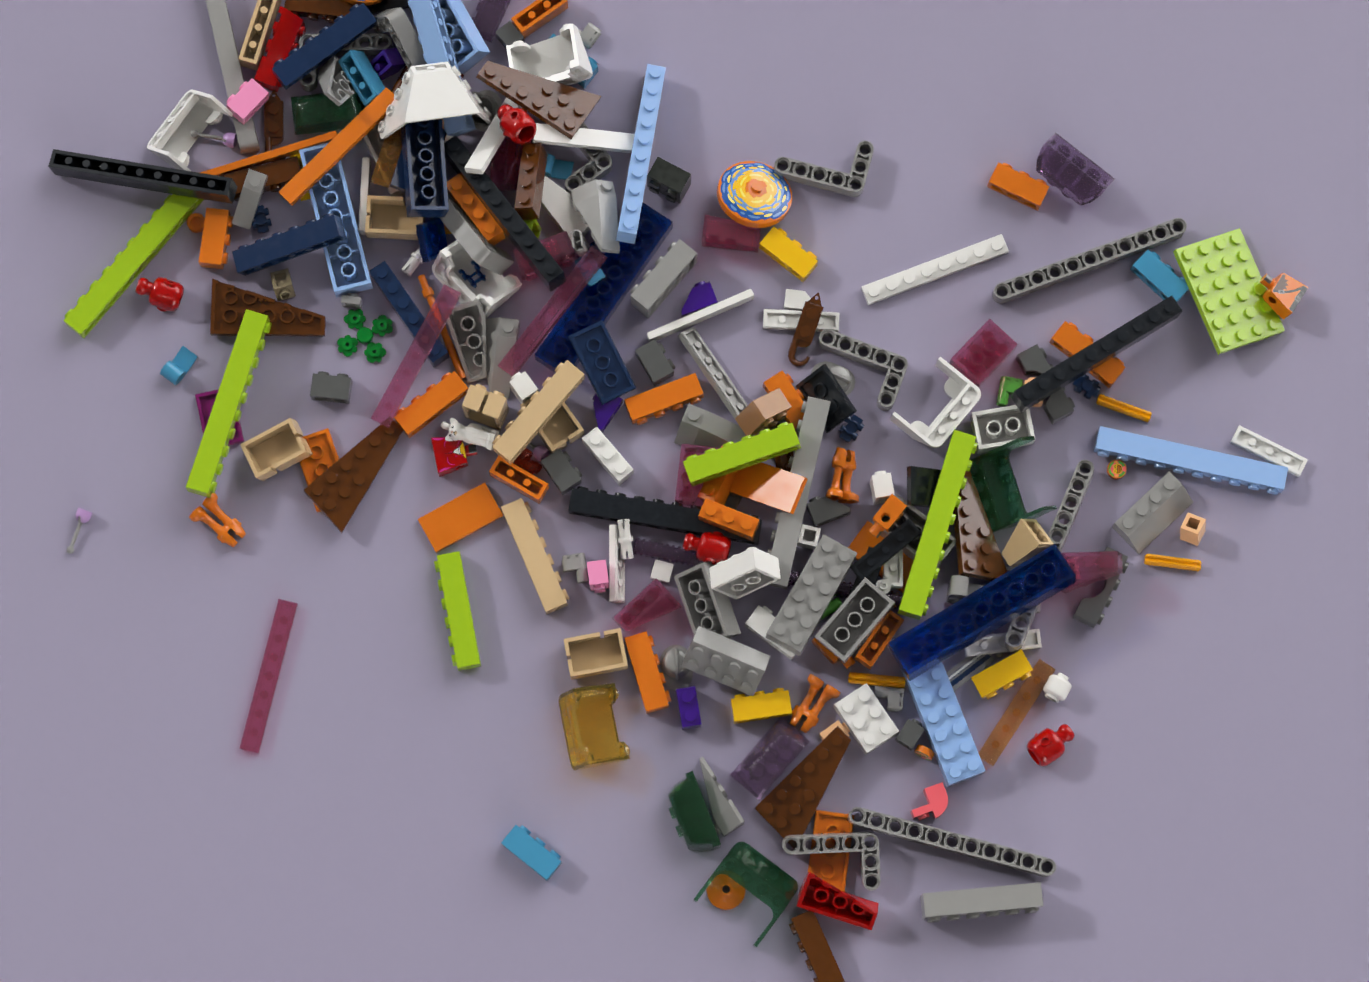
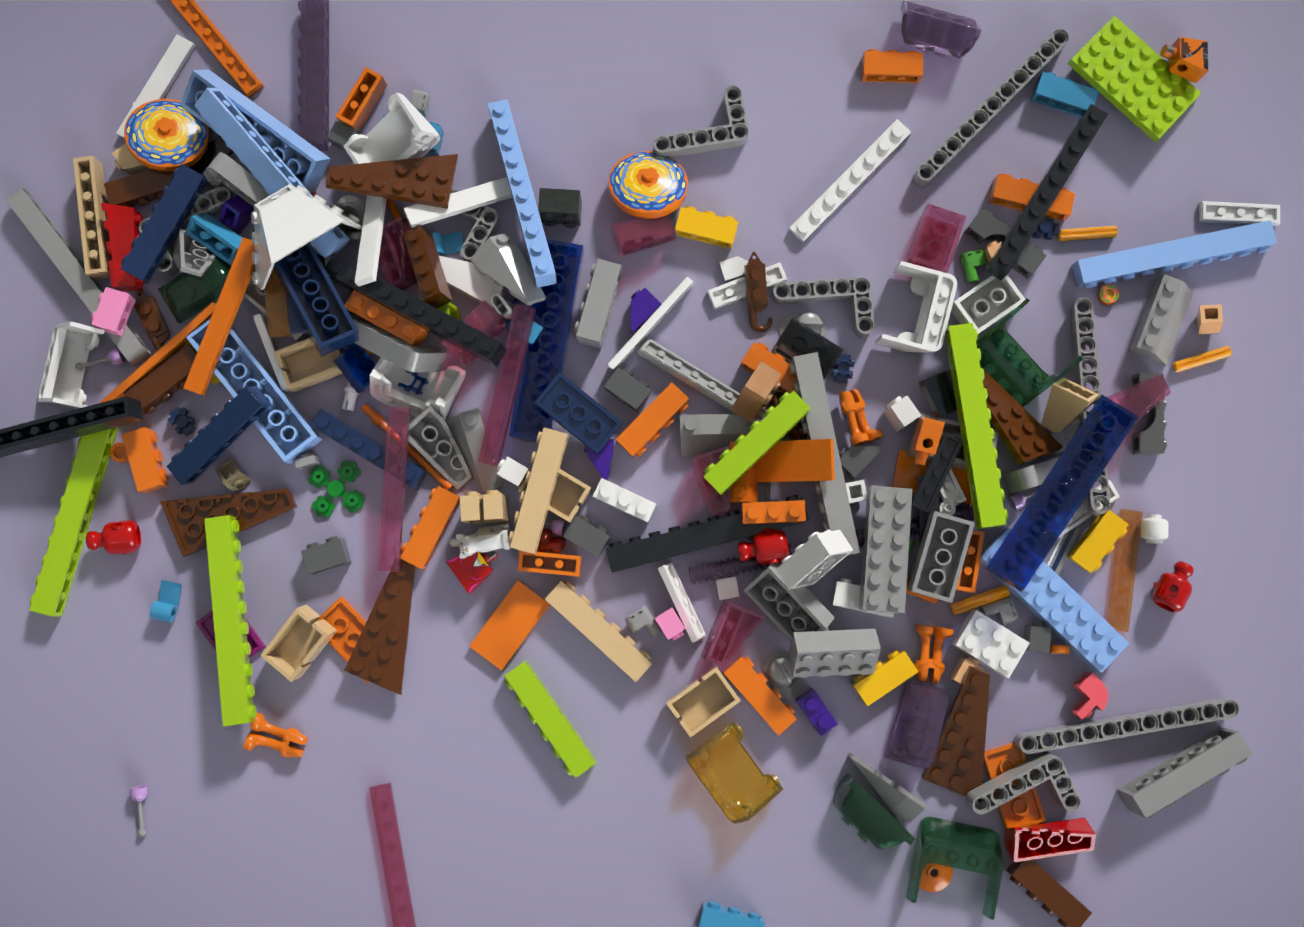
camera: 25 degrees left, 5 degrees up
(249, 199) = (159, 406): light grey slope -> none
(516, 124) = (387, 216): red piece -> none
(625, 539) = (679, 575): white pin -> none

